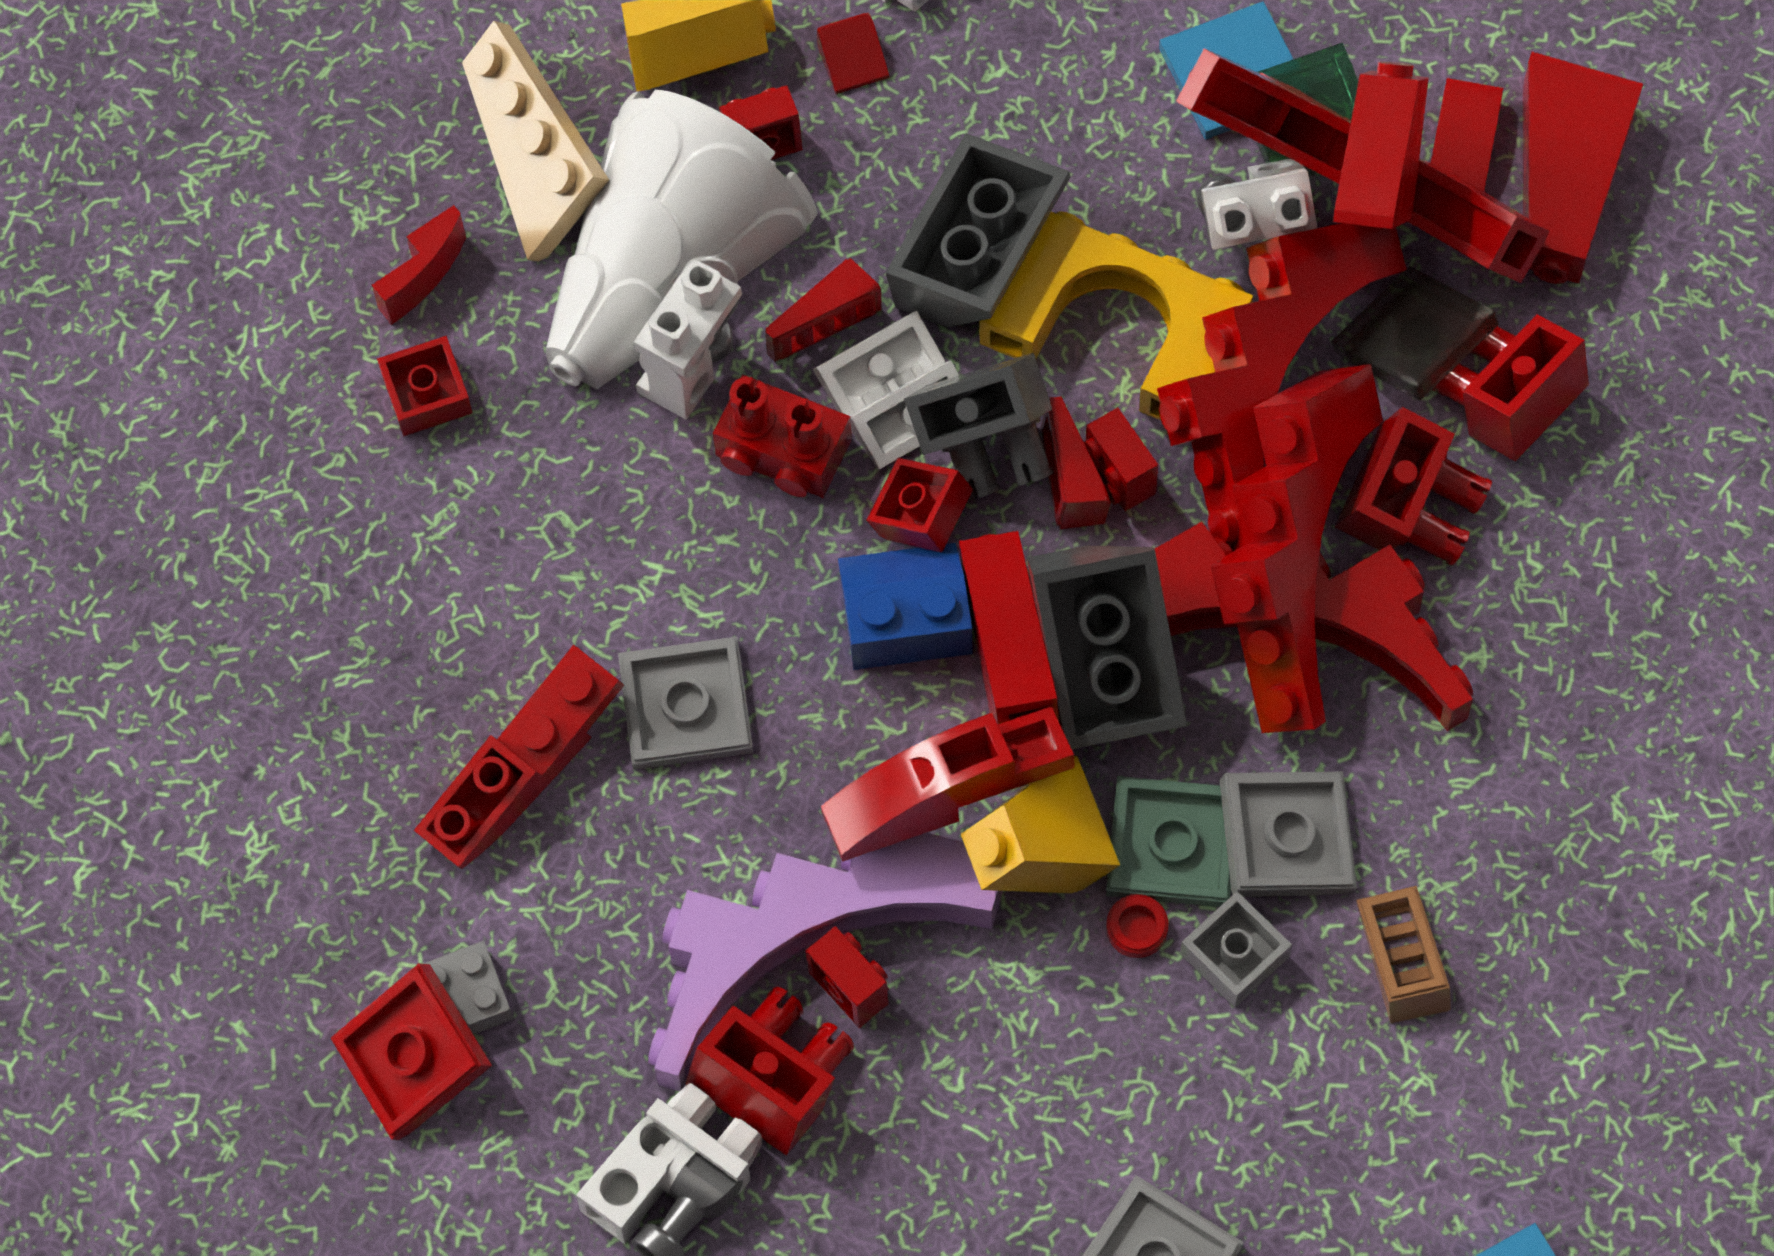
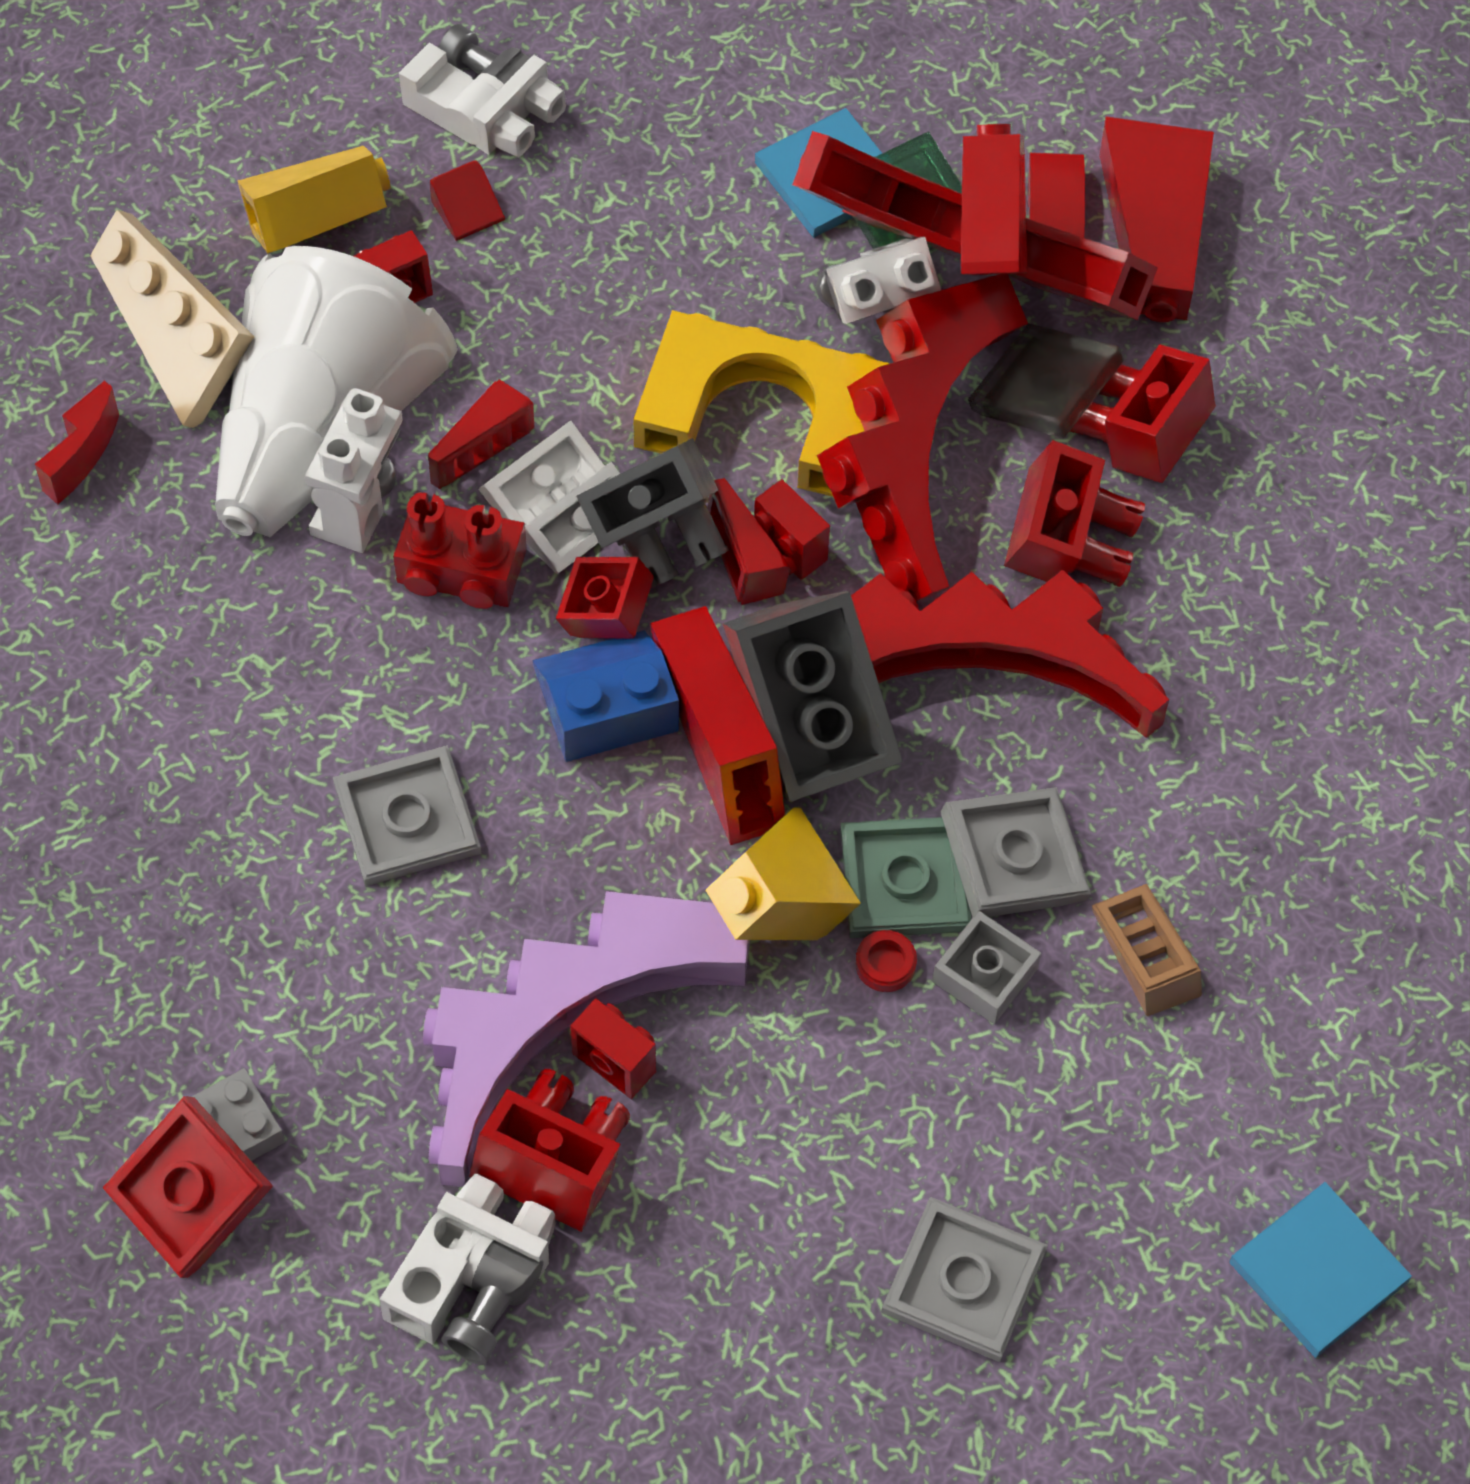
camera: 15 degrees left, 5 degrees down
(424, 386) = (100, 554): red piece -> none
(522, 761) = (254, 891): red slope -> none
(934, 778) = (670, 840): red slope -> none
(973, 233) = (613, 342): dark grey slope -> none
(1282, 515) = (962, 607): red arch -> none

